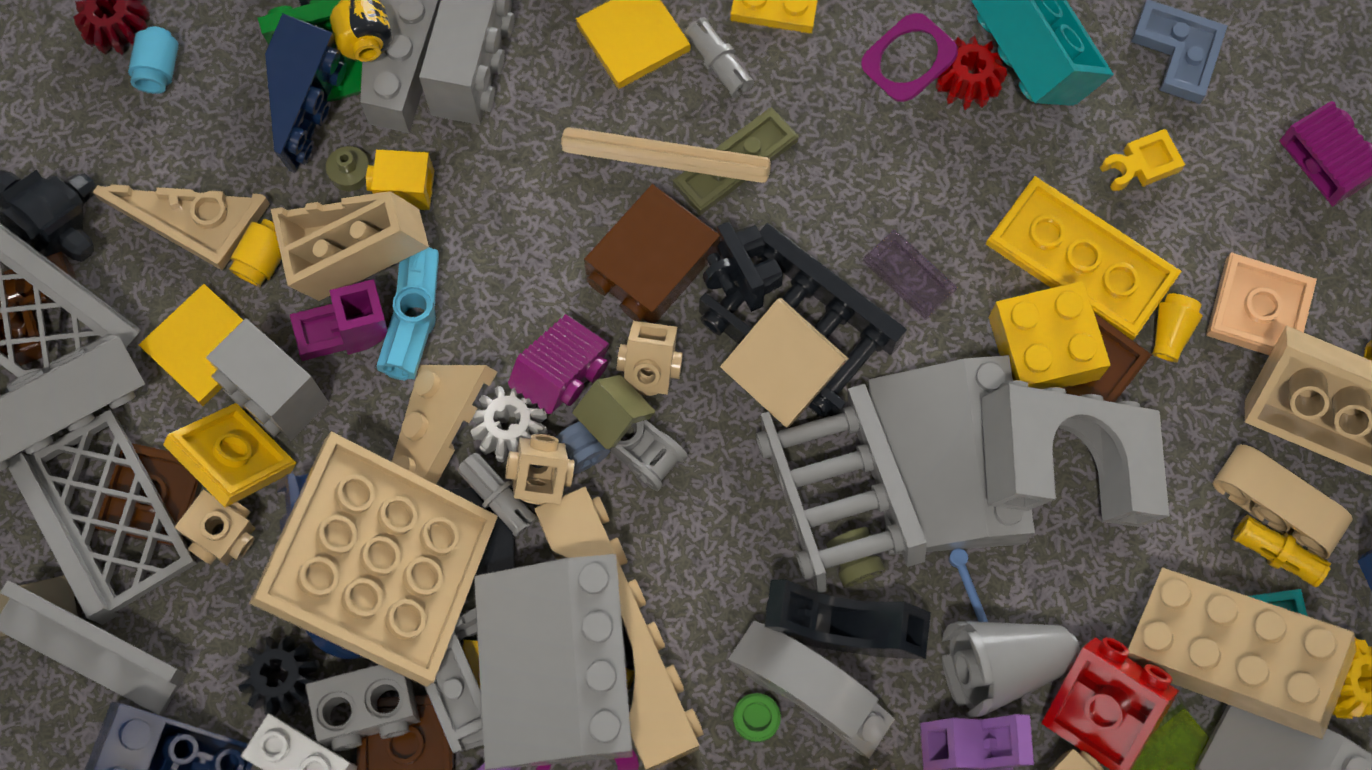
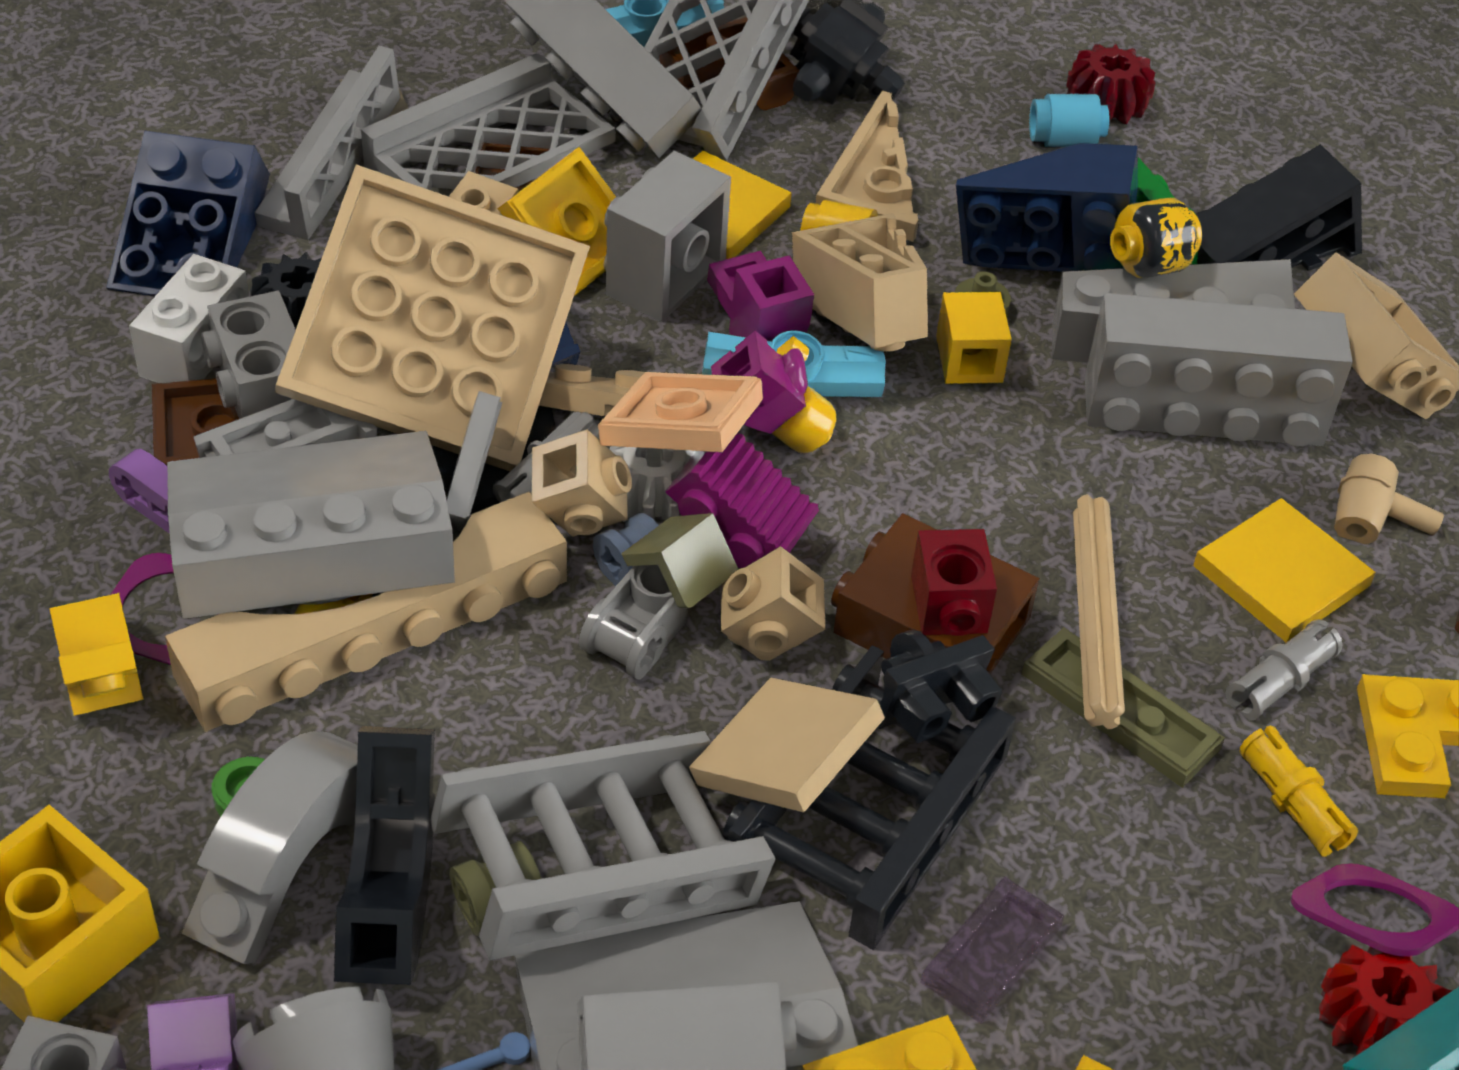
camera: 80 degrees right, 25 degrees down
(457, 329) = (788, 406): none -> magenta piece
(502, 387) = (681, 412): none -> light nougat plate
(504, 542) = (472, 458): none -> light grey tile
(662, 219) = (953, 582): none -> dark red brick
(813, 76) = (1298, 790): none -> yellow pin

